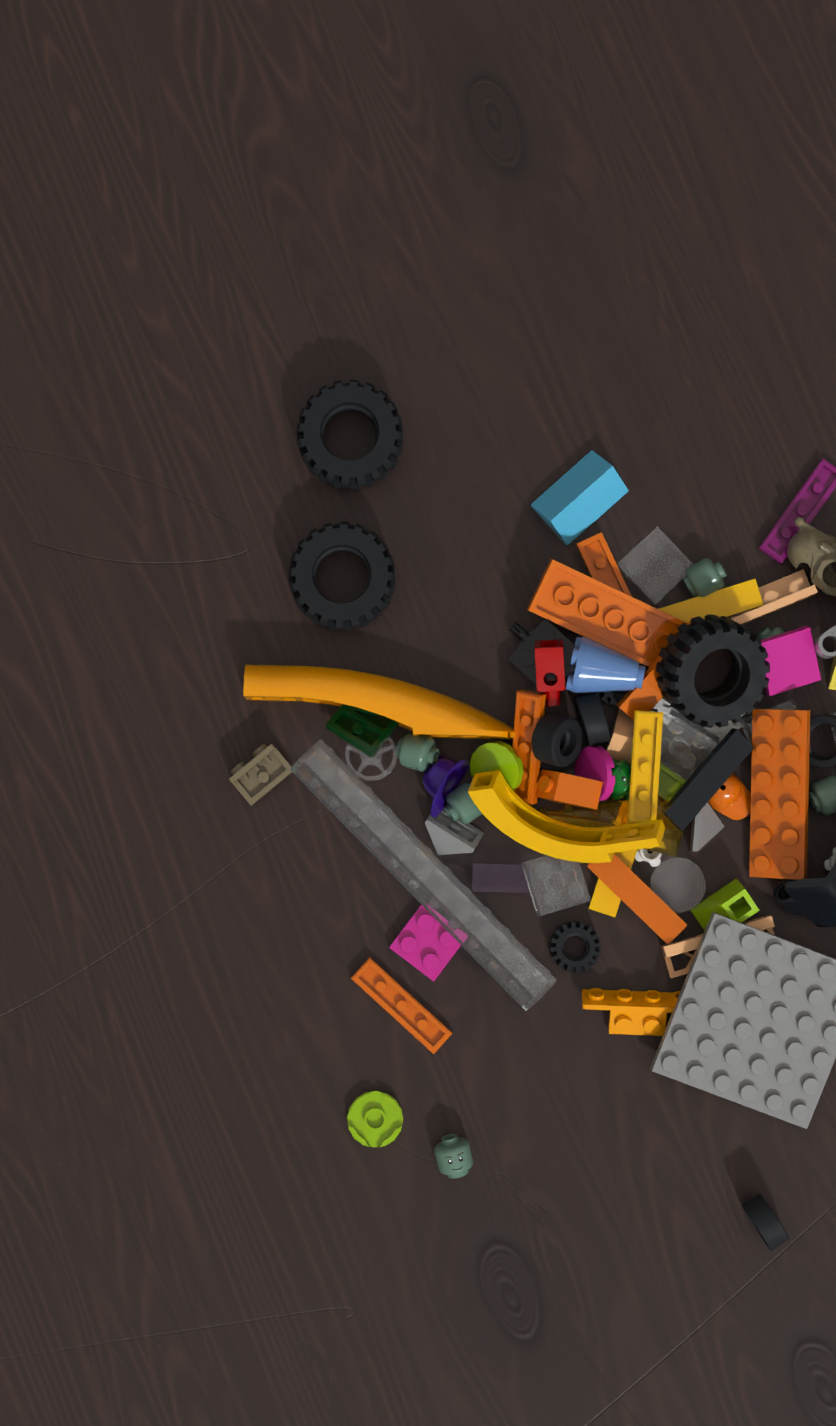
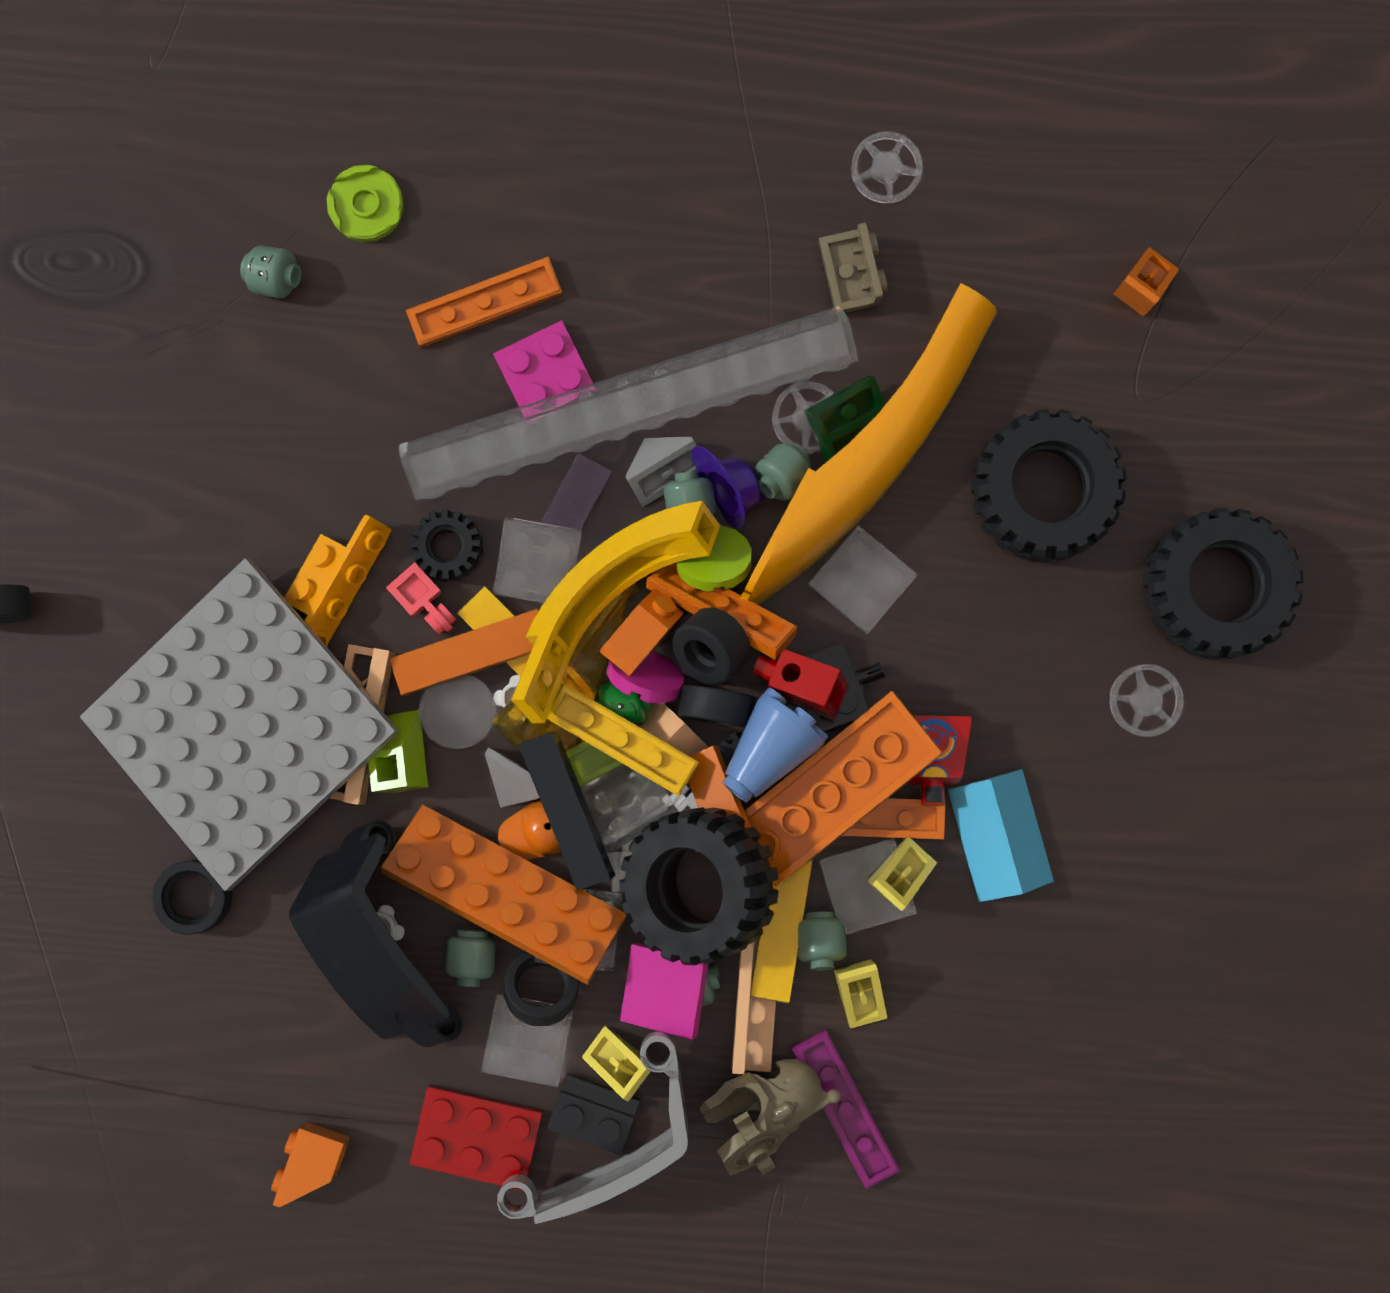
camera: 120 degrees right, 0 degrees up
(171, 578) = (1146, 281): none -> orange slope
(178, 785) = (886, 167): none -> clear wheel
(446, 447) = (1146, 700): none -> clear wheel
(460, 666) = (862, 579): none -> clear plate
(537, 558) = (952, 737): none -> red torso
(616, 951) = (416, 592): none -> coral plate
(638, 547) = (902, 873): none -> light yellow slope
(724, 537) = (861, 993): none -> light yellow slope

